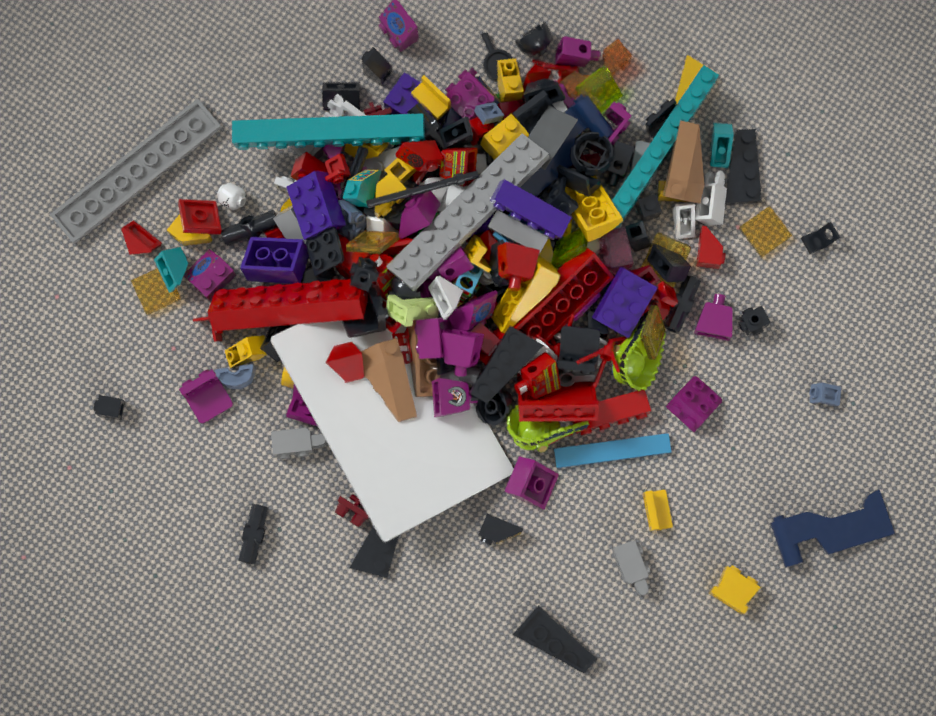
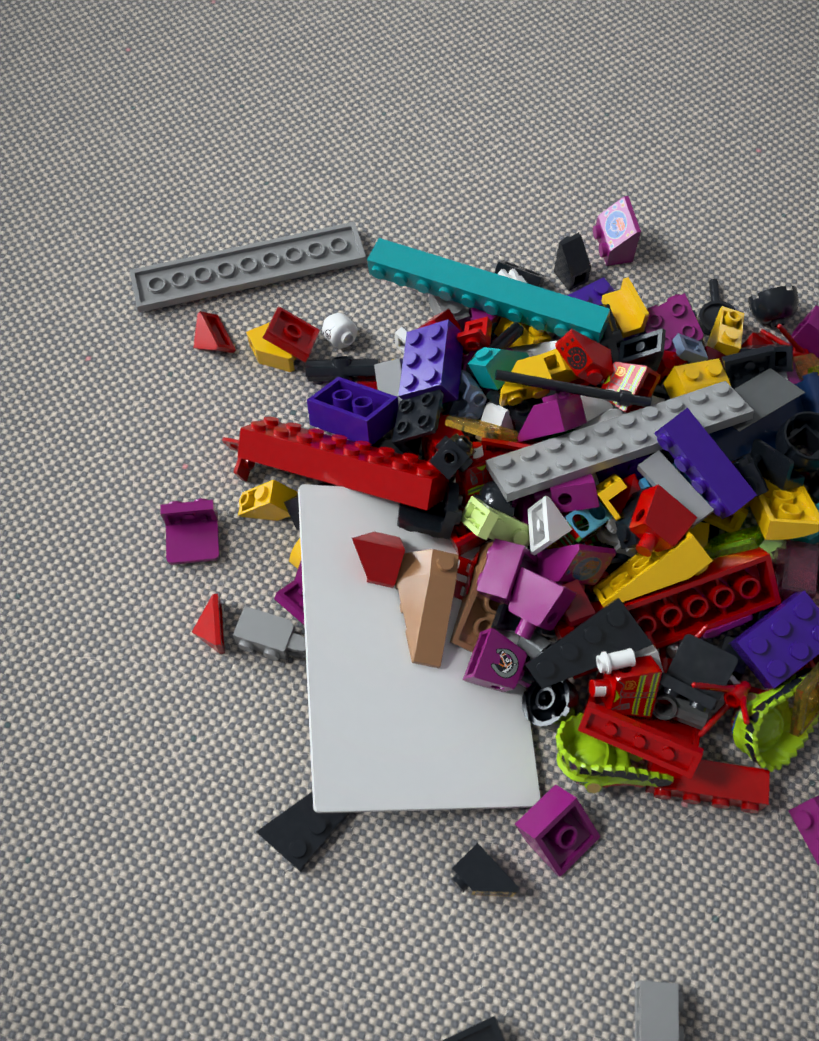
camera: 25 degrees right, 15 degrees down
(109, 407) = (72, 497): black brick -> none
(153, 292) = (200, 394): clear yellow tile -> none
(172, 266) = (231, 372): teal slope -> none
(209, 274) = (272, 400): magenta slope -> none
(238, 379) = (241, 528): sand blue cylinder -> none
(252, 453) = (210, 625): none -> red slope
(253, 534) = (155, 727): black piece -> none
(344, 506) = (288, 746): dark red hips -> none
(524, 367) = (616, 660): none -> white pin
(612, 450) = (691, 838): dark azure tile -> none
(657, 510) = (725, 955): yellow panel -> none

